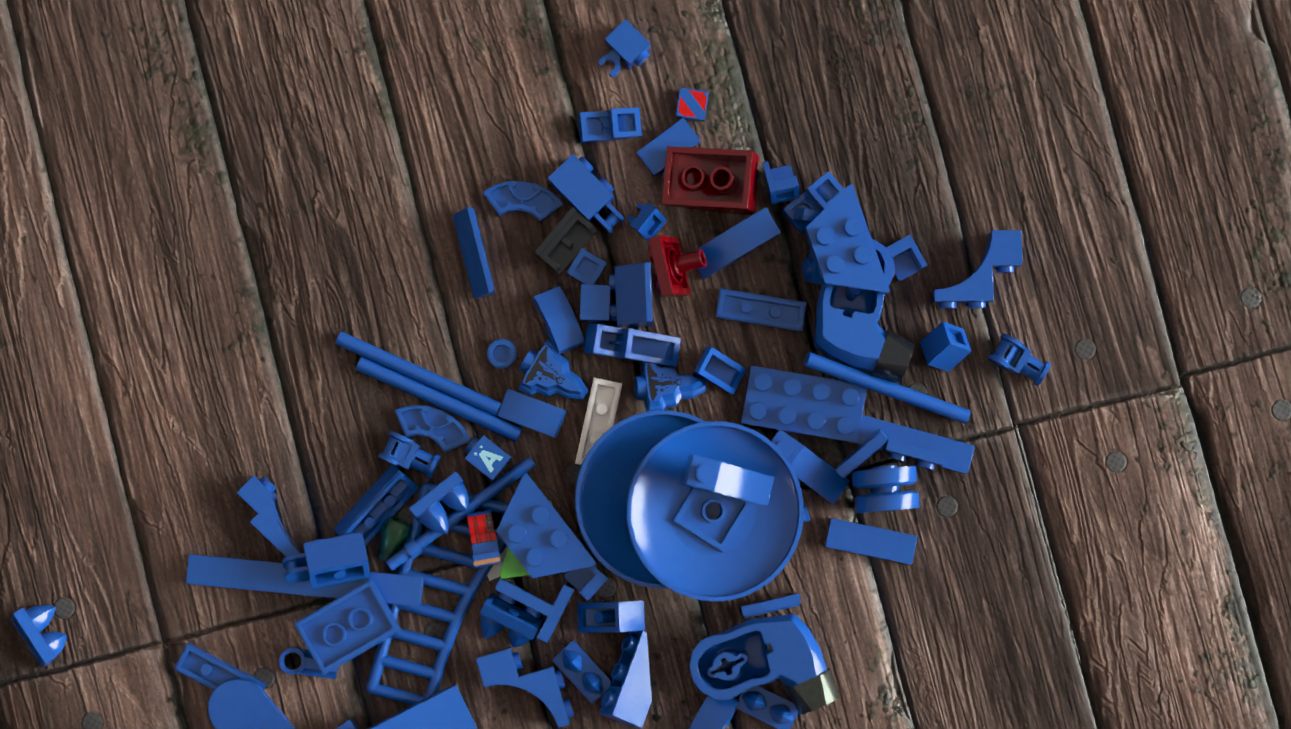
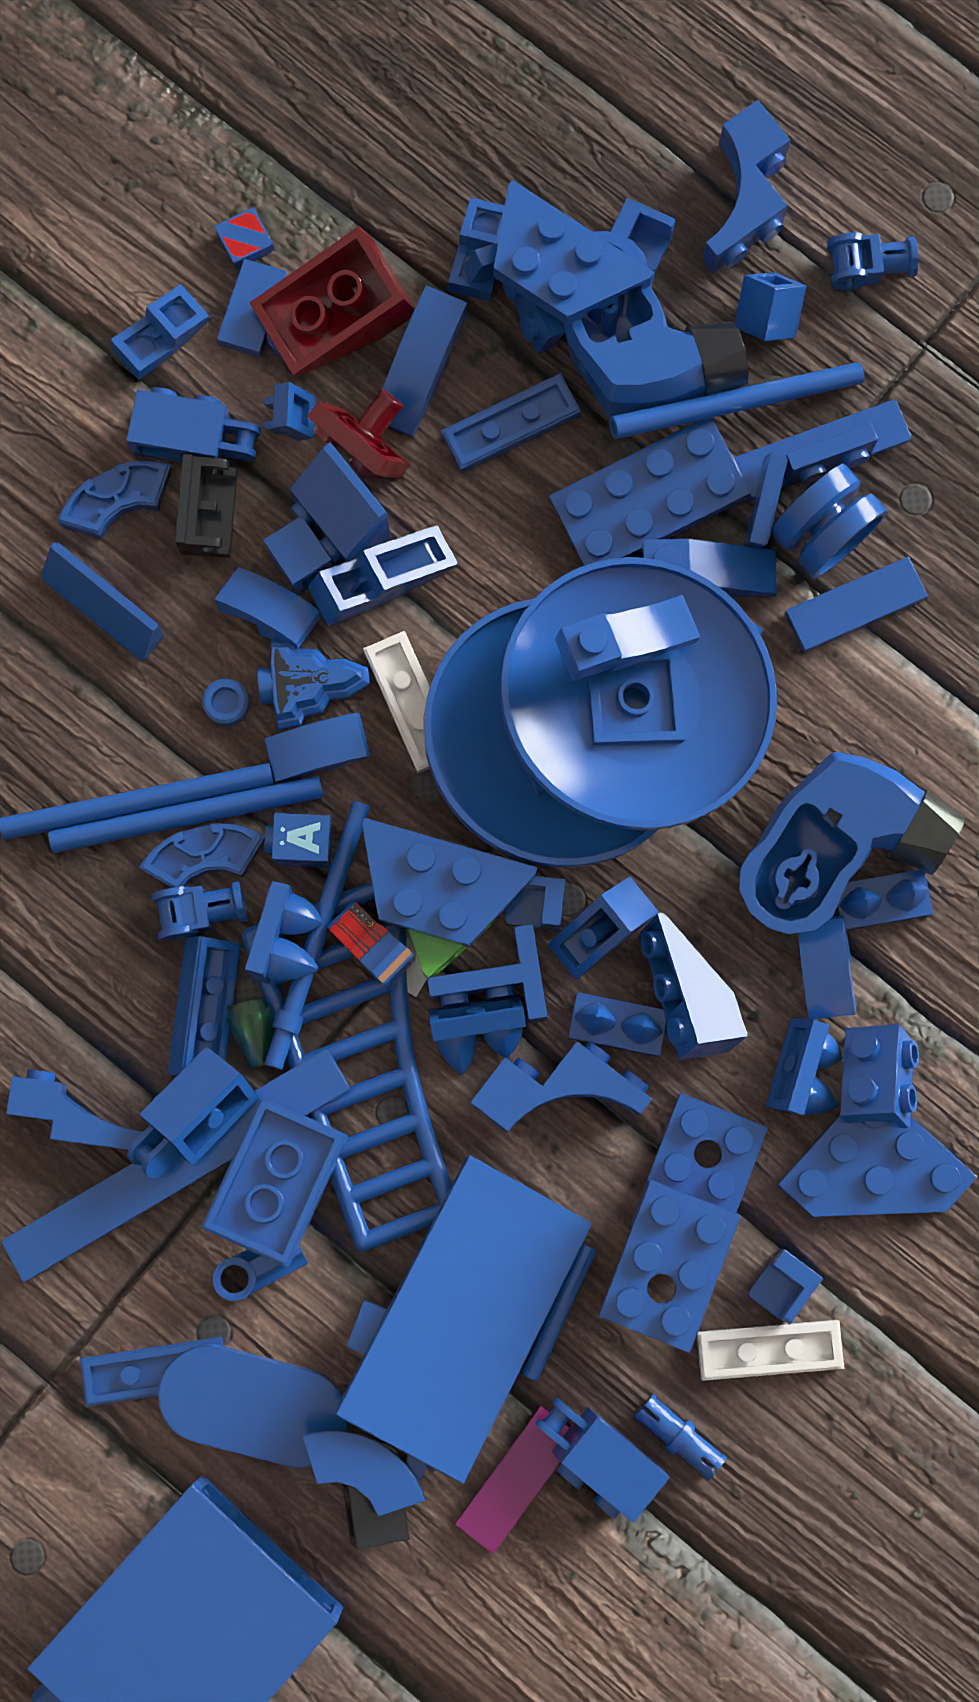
camera: 30 degrees left, 5 degrees down
(586, 267) = (255, 520): blue plate -> none
(625, 46) = (111, 223): blue brick -> none
(664, 387) = (460, 595): blue rock -> none
(719, 370) = (512, 528): blue slope -> none
(770, 605) = (792, 769): blue tile -> none
(780, 183) = (423, 253): blue panel -> none

